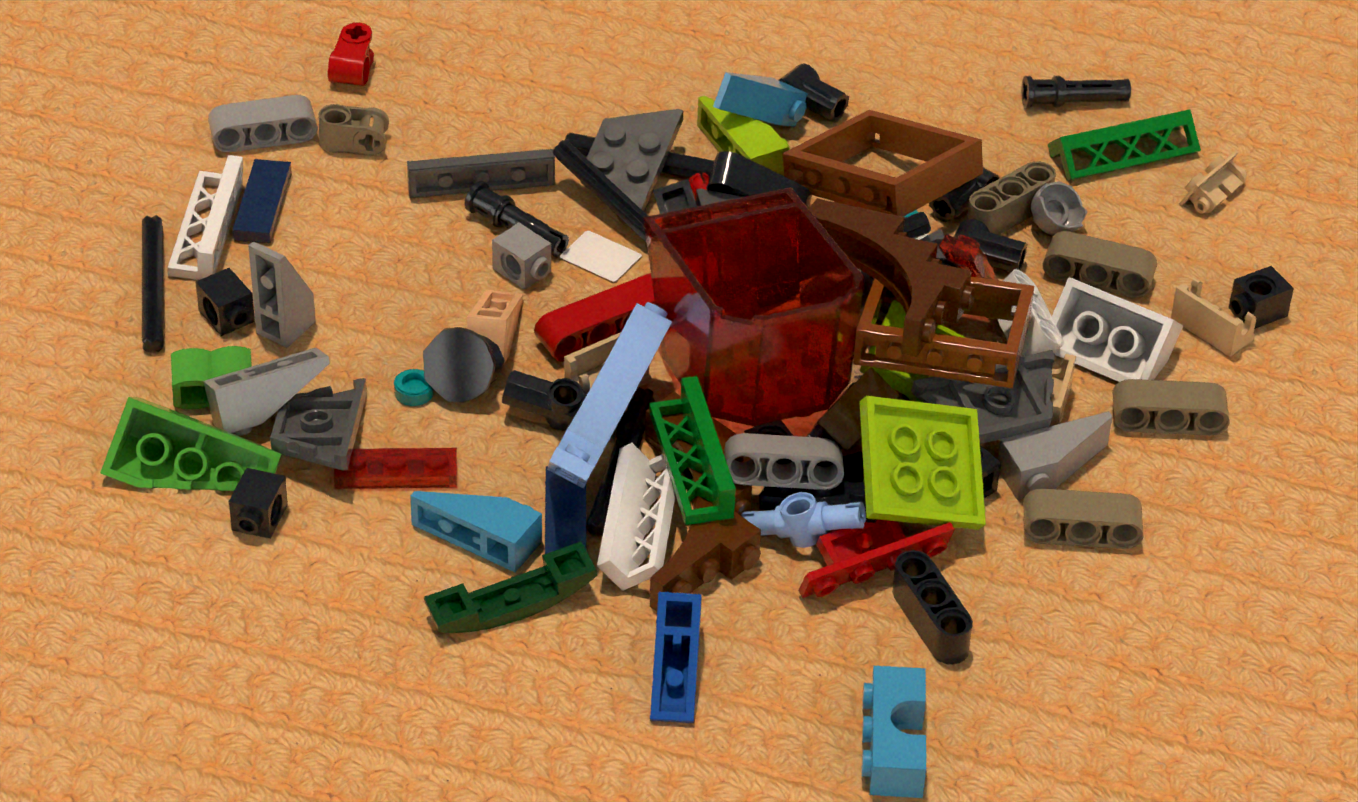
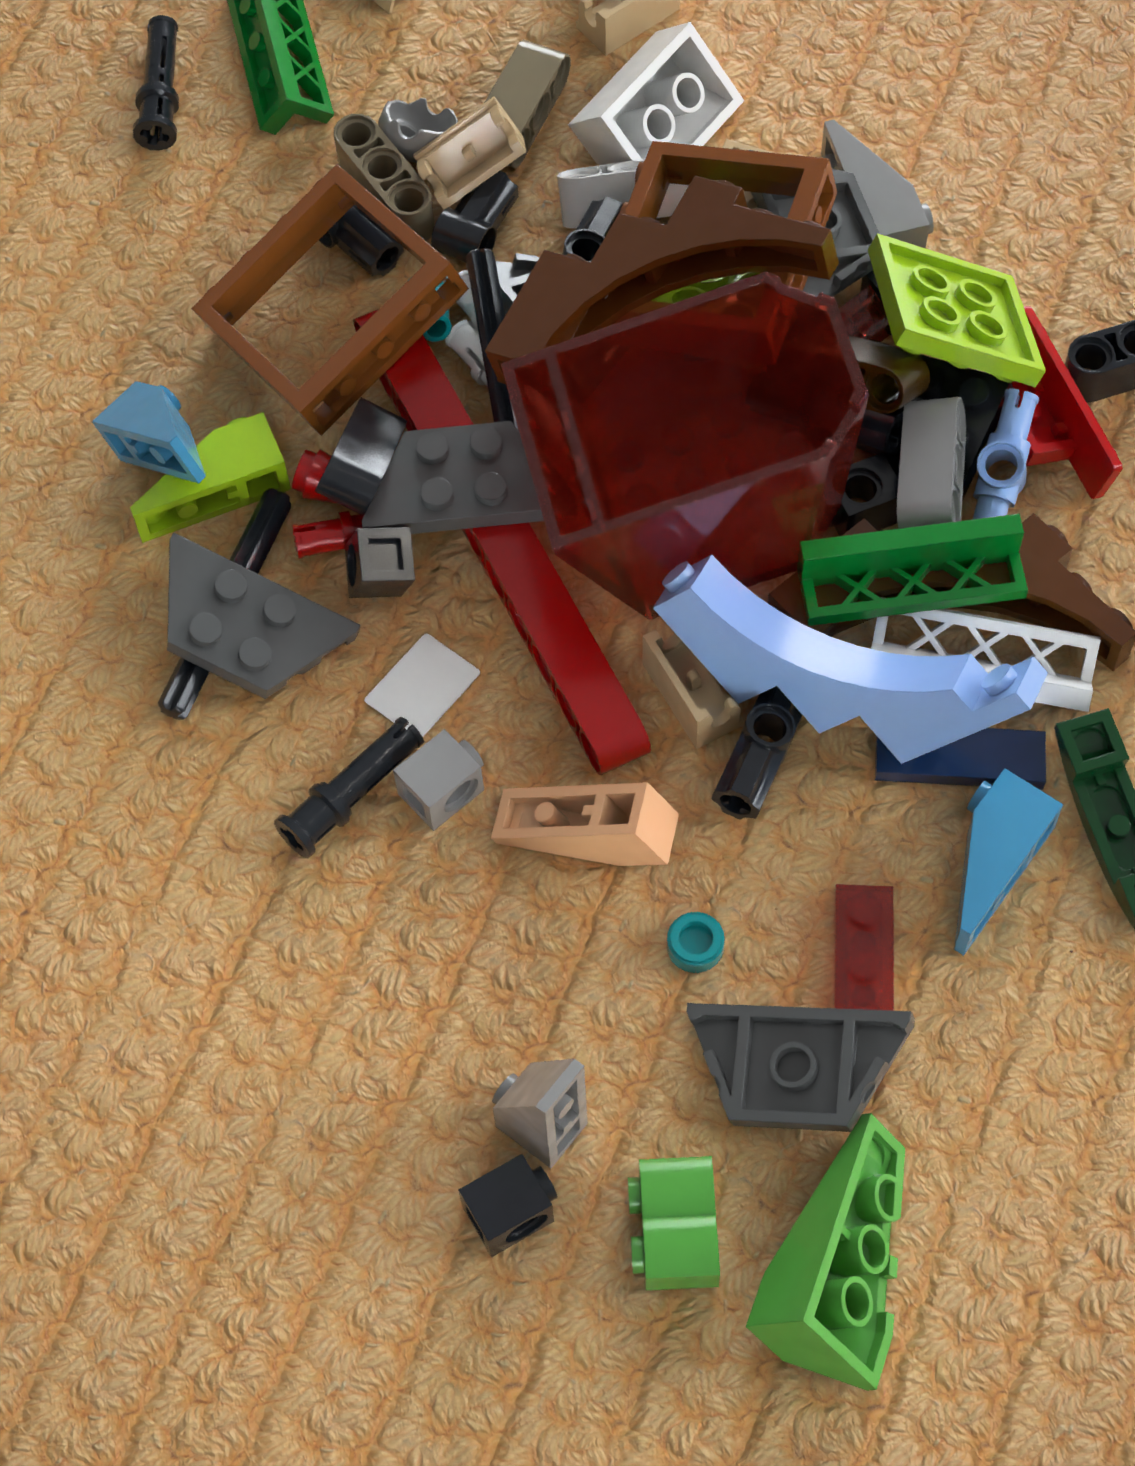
camera: 80 degrees left, 20 degrees up
(152, 284) = (435, 1325): black axle -> none
(213, 227) = (301, 1217): white fence -> none
(257, 392) = (735, 1133): light grey slope -> none
(258, 503) = (954, 1153): black brick -> none
(262, 123) = (66, 1154): light grey beam -> none
(262, 201) = (249, 1157): dark blue tile -> none
(349, 129) = (107, 1001): dark tan piece -> none
(461, 364) = (693, 860): black hat -> none
(498, 170) = (242, 829): dark grey tile -> none
(601, 186) = (338, 644): black axle -> none
(821, 96) = (92, 390): black piece -> none
(967, 256) = (559, 219): clear red plate -> none
(1032, 226) = (470, 152): none -> tan hinge
(1083, 518) = (981, 185): dark tan beam -> none
(1170, 407) = (789, 71): dark tan beam -> none

